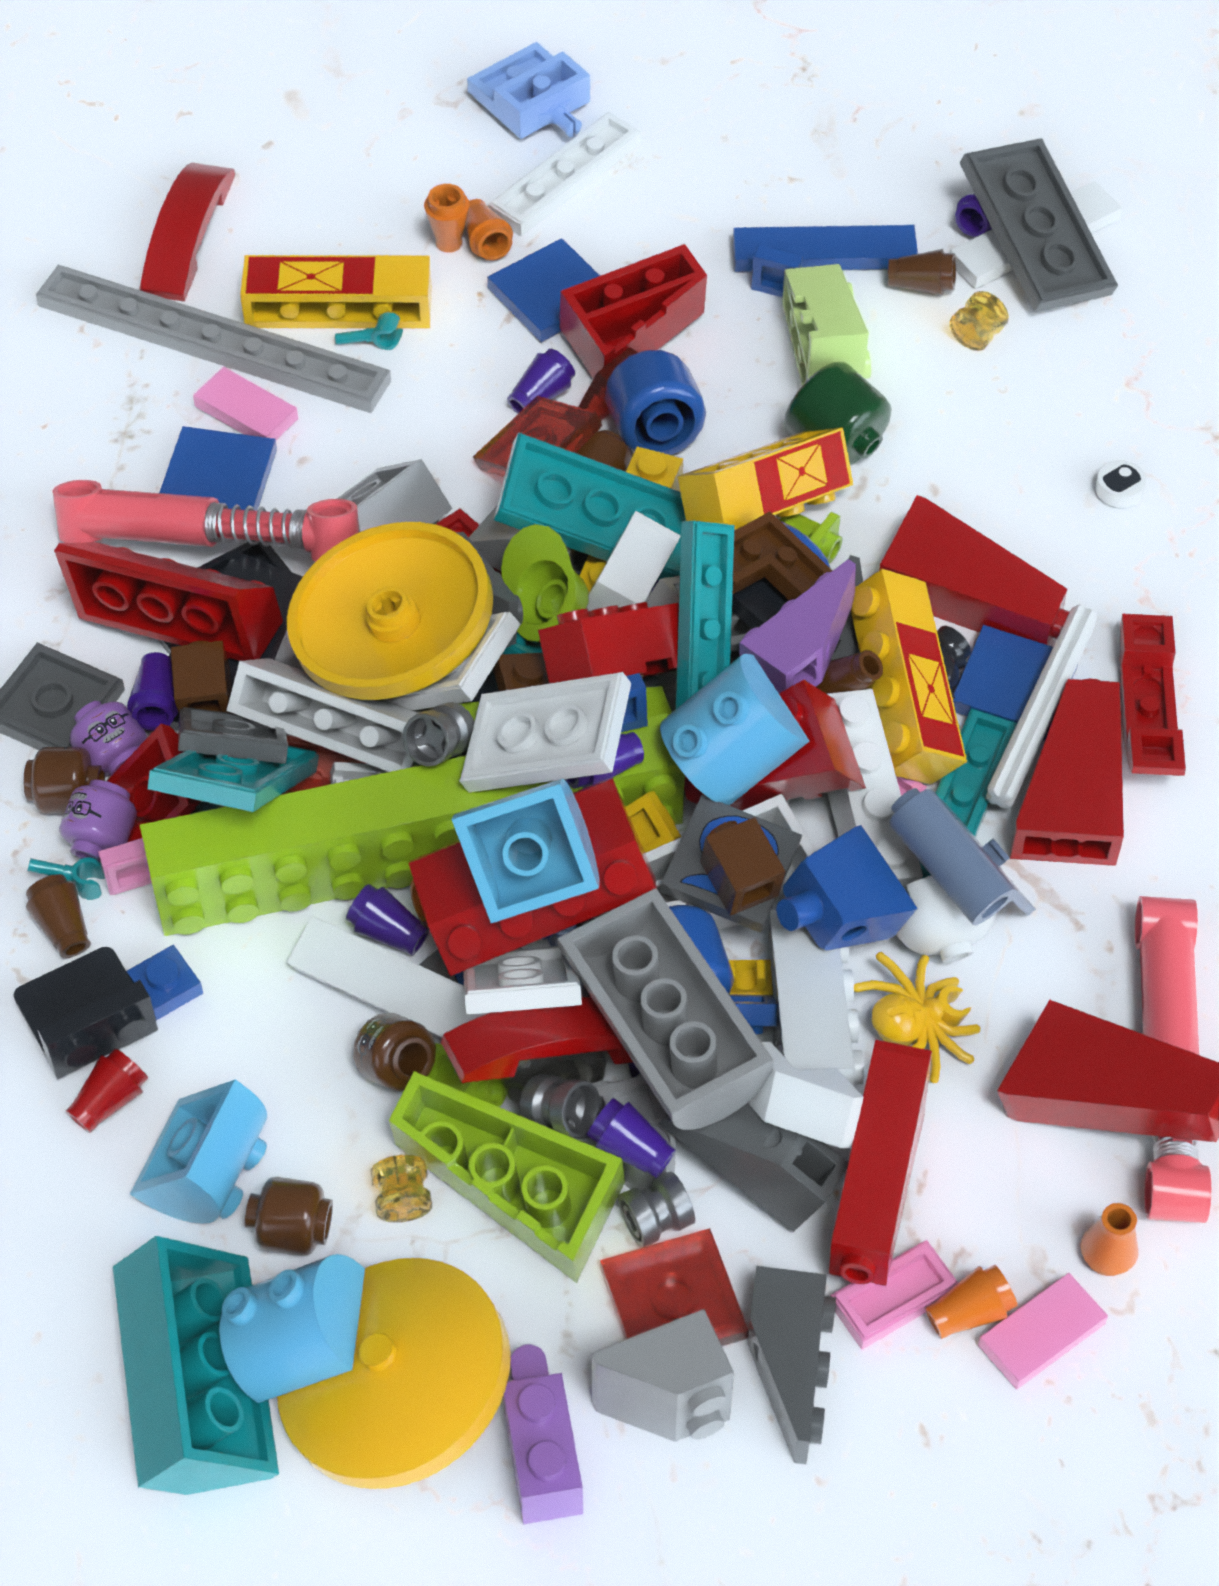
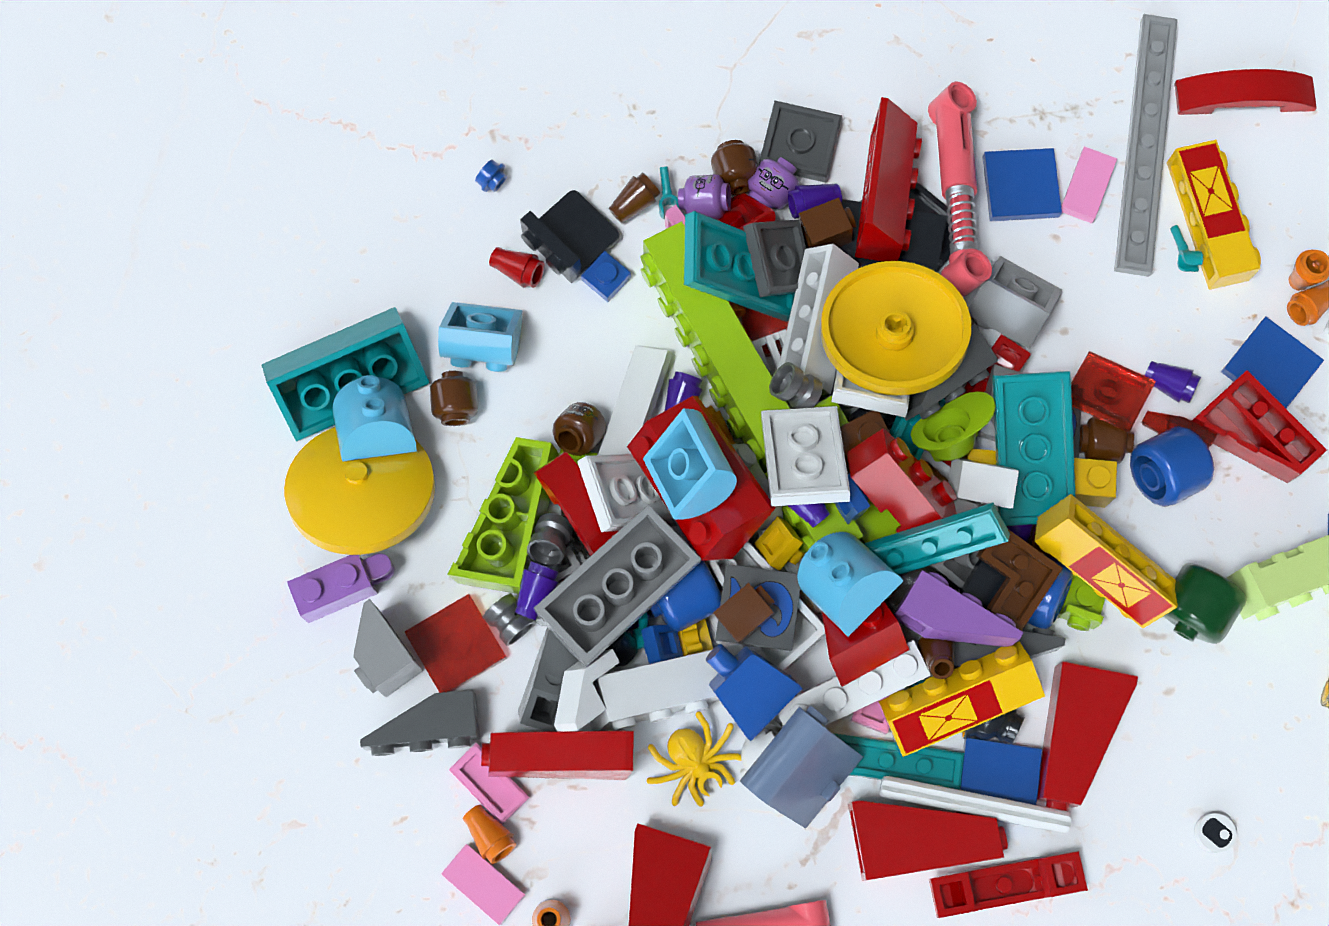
camera: 75 degrees right, 20 degrees up
(401, 1188) = (487, 458): clear yellow wheel -> none

